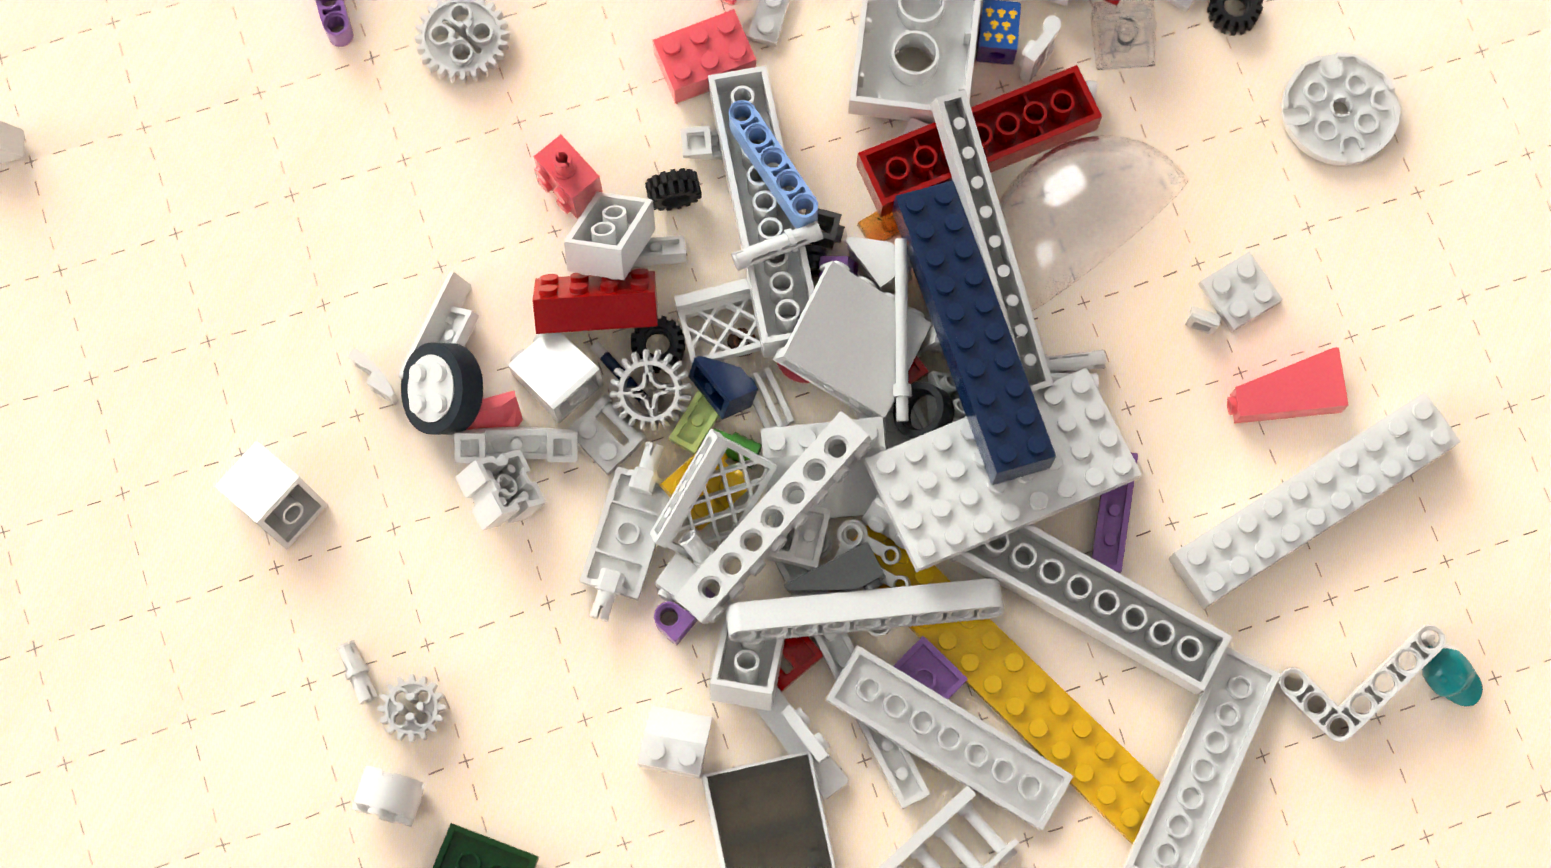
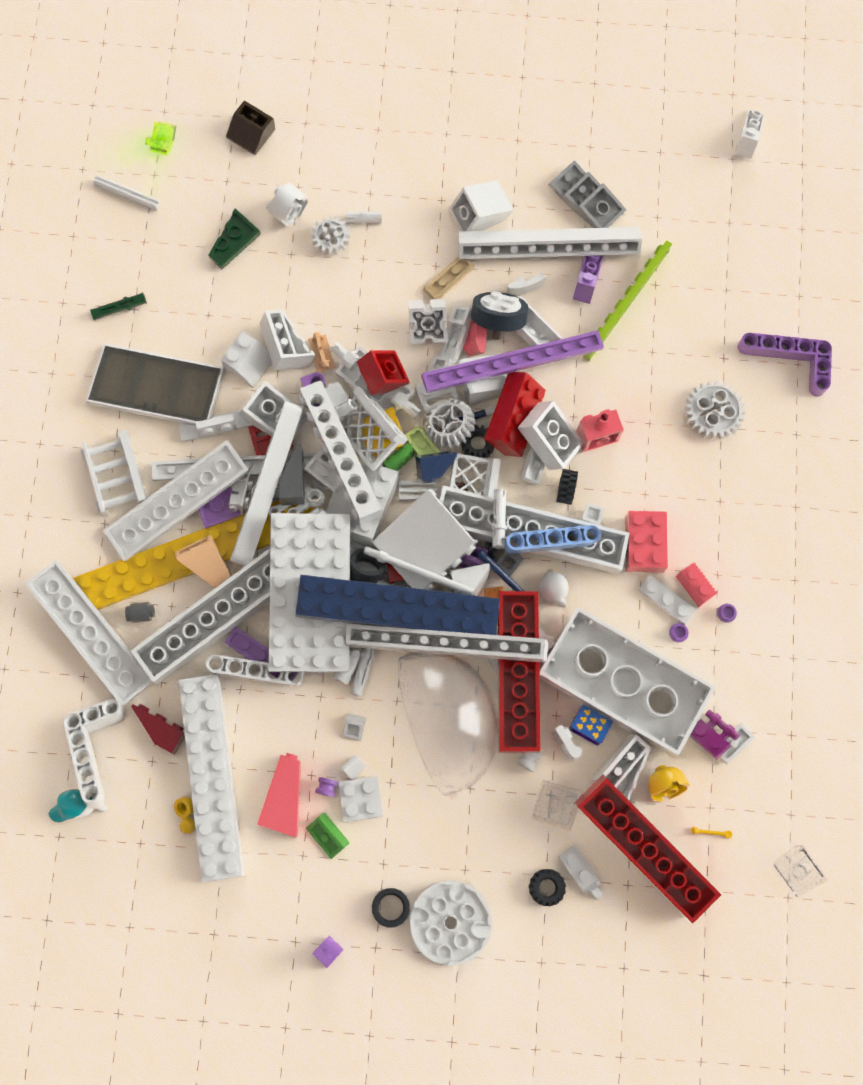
camera: 110 degrees right, 0 degrees up
(184, 345) = (587, 196): none -> light grey slope
(291, 369) = (549, 242): none -> white brick
(320, 291) = (588, 278): none -> medium lavender slope
(348, 222) = (632, 292): none -> lime plate
(407, 499) = (448, 278): none -> tan tile
(523, 330) = (511, 361): none -> medium lavender plate
(613, 520) = (382, 371): none -> red slope
(614, 636) = (323, 358): none -> light nougat hinge
(625, 696) = (283, 343): none -> white wedge
(827, 153) = (554, 587): none -> white hair
(847, 219) = (499, 571): none -> dark blue bar
(904, 643) = (240, 501): none -> white hinge
(1022, 649) = (205, 561): none -> light nougat slope
(1135, 715) = (139, 612): none -> dark grey brick
(1147, 343) = (354, 726): none -> white slope
(1152, 518) = (244, 671): none -> white beam
(1249, 340) = (326, 787): none -> medium lavender wheel
(1289, 595) = (161, 733): none -> dark red slope
(1309, 313) = (327, 835): none -> bright green slope
(1373, 173) = (375, 907): none -> black tyre
(1373, 518) = (184, 808): none -> yellow plate
(1461, 244) = (328, 951): none -> medium lavender plate

